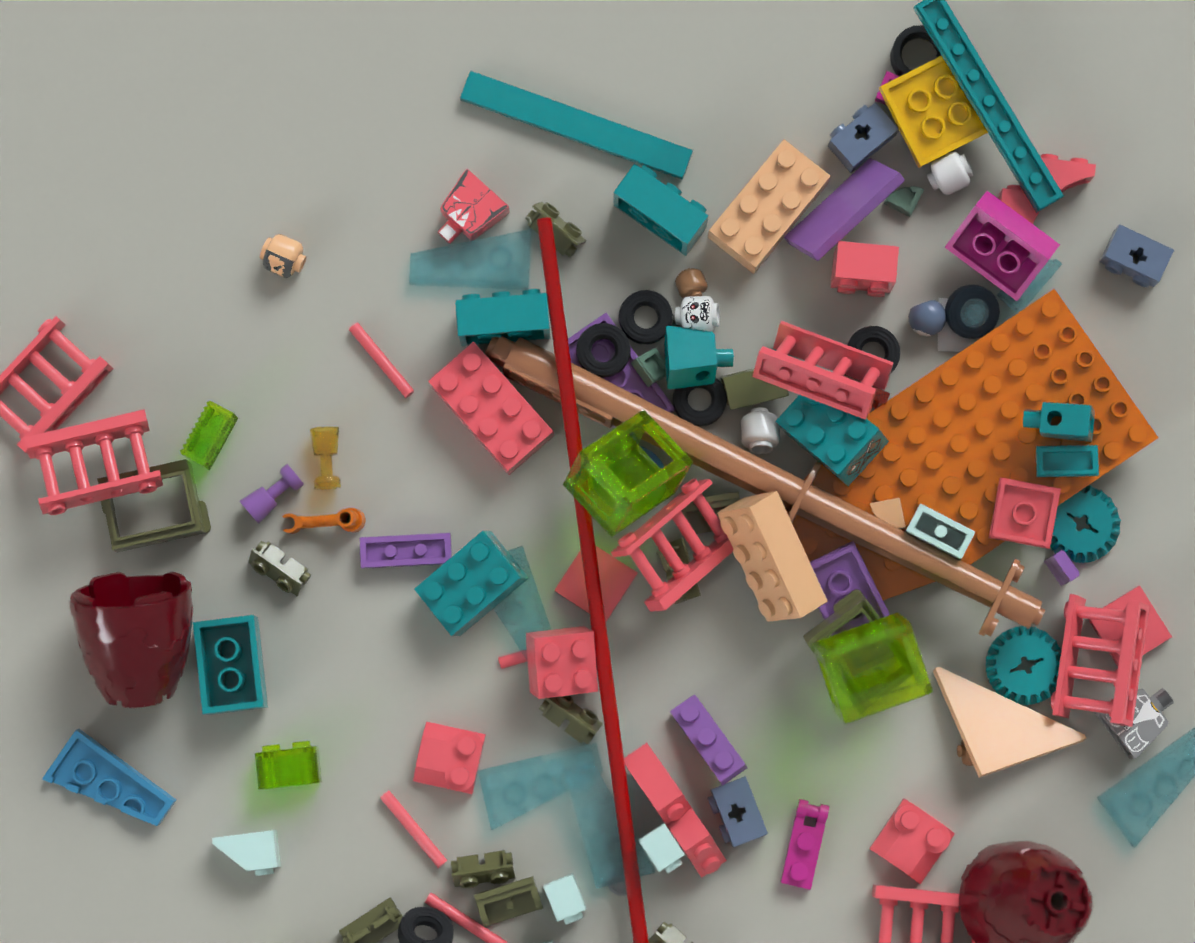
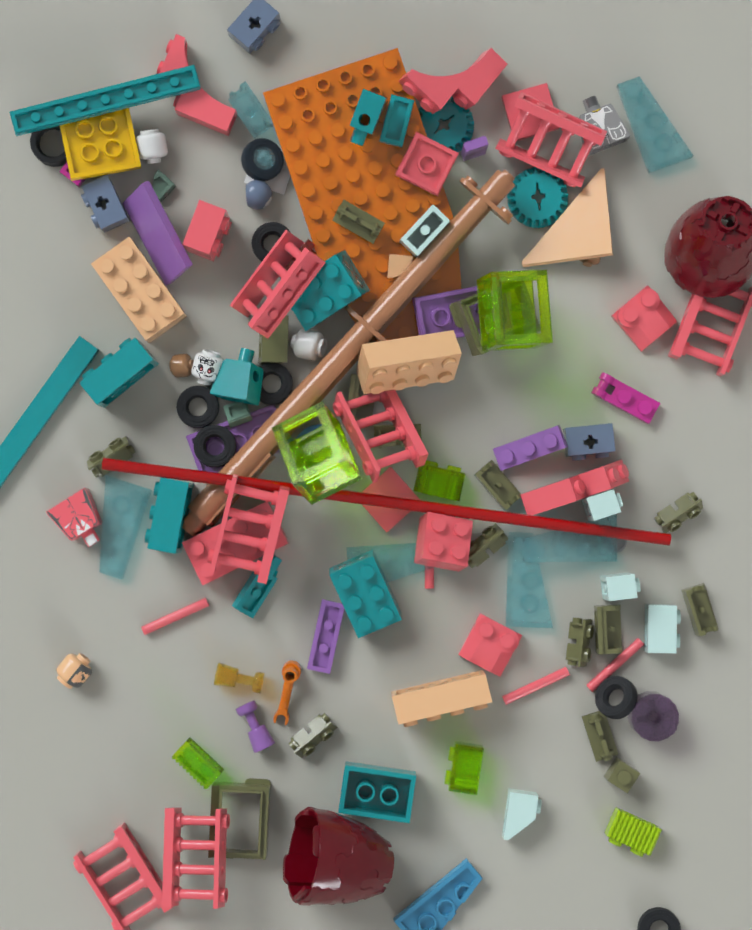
camera: 75 degrees left, 5 degrees up
(368, 712) = (441, 697): none -> light nougat brick
(445, 450) = (255, 593): none -> teal hinge
(528, 441) = (271, 521): none -> coral fence
(635, 638) = (439, 481): none -> clear neon green brick
(651, 712) = (498, 485): none -> olive hinge
(929, 448) = (358, 221): none -> olive hinge
(1002, 245) = (219, 121): dark pink slope -> none
(1134, 534) = (464, 87): none -> coral arch

